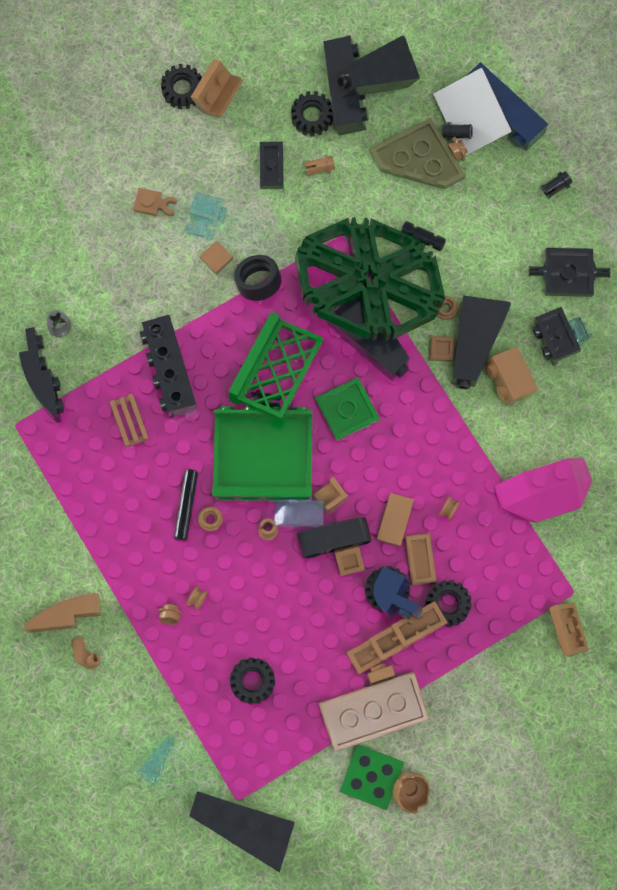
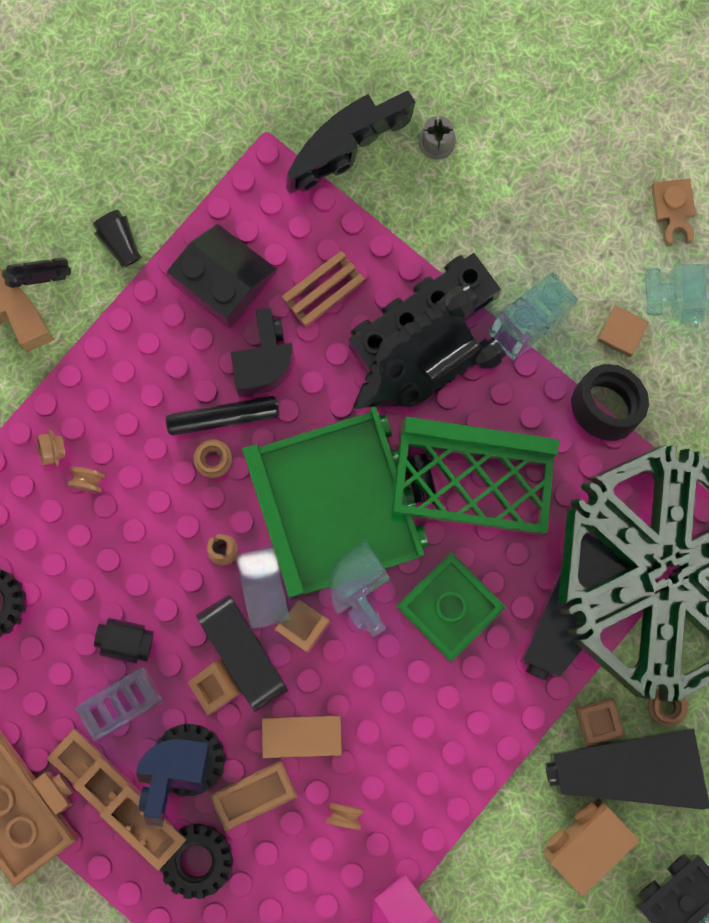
camera: 75 degrees right, 5 degrees up
(50, 534) = (116, 235): none -> black cone
(55, 589) = (36, 272): none -> black axle
(98, 477) = (220, 274): none -> black slope
(165, 467) = (264, 367): none -> black brick
(190, 303) = (533, 315): none -> clear light blue brick
(194, 368) = (428, 354): none -> black shield
(303, 605) = (124, 640): none -> black brick
(314, 459) = (351, 580): none -> clear light blue brick
(344, 598) = (145, 685): none -> clear light blue slope

